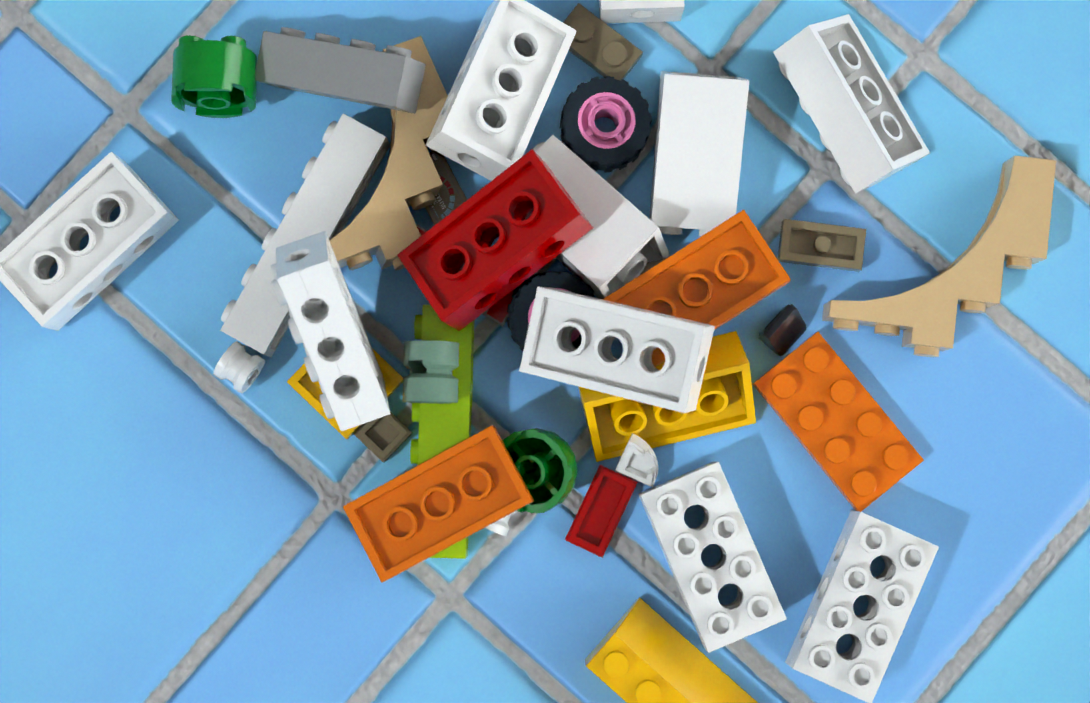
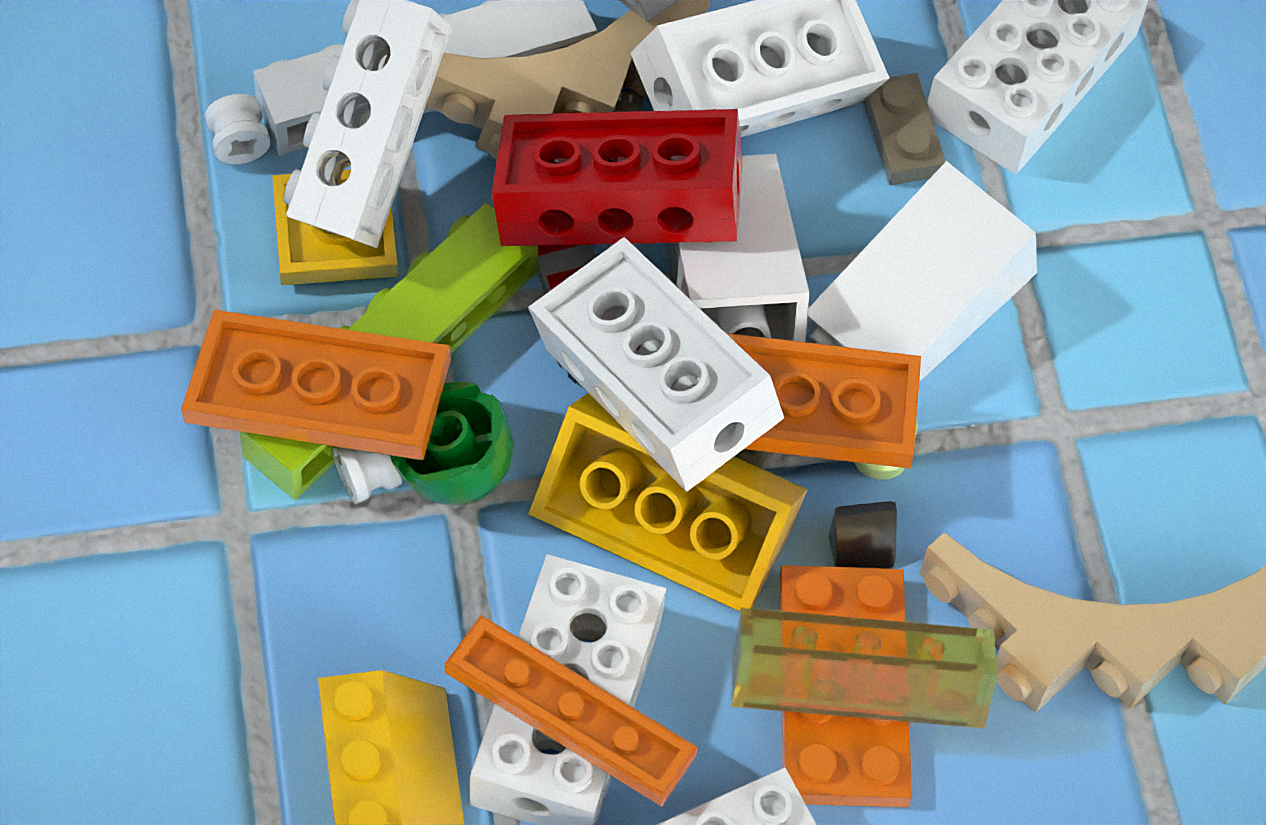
camera: 30 degrees right, 25 degrees down
(383, 435) = (324, 301): dark tan tile -> none
(431, 372) = (425, 258): sand green wheel -> none
(601, 511) = (484, 565): red tile -> none
(612, 100) = (848, 169): black wheel -> none
(638, 461) = (577, 535): white tile -> none
(734, 580) = (571, 710): none -> orange tile
(821, 245) = (984, 487): dark tan plate -> none
(850, 102) = (1141, 374): white slope -> none
(859, 424) = (863, 668): none -> clear yellow brick

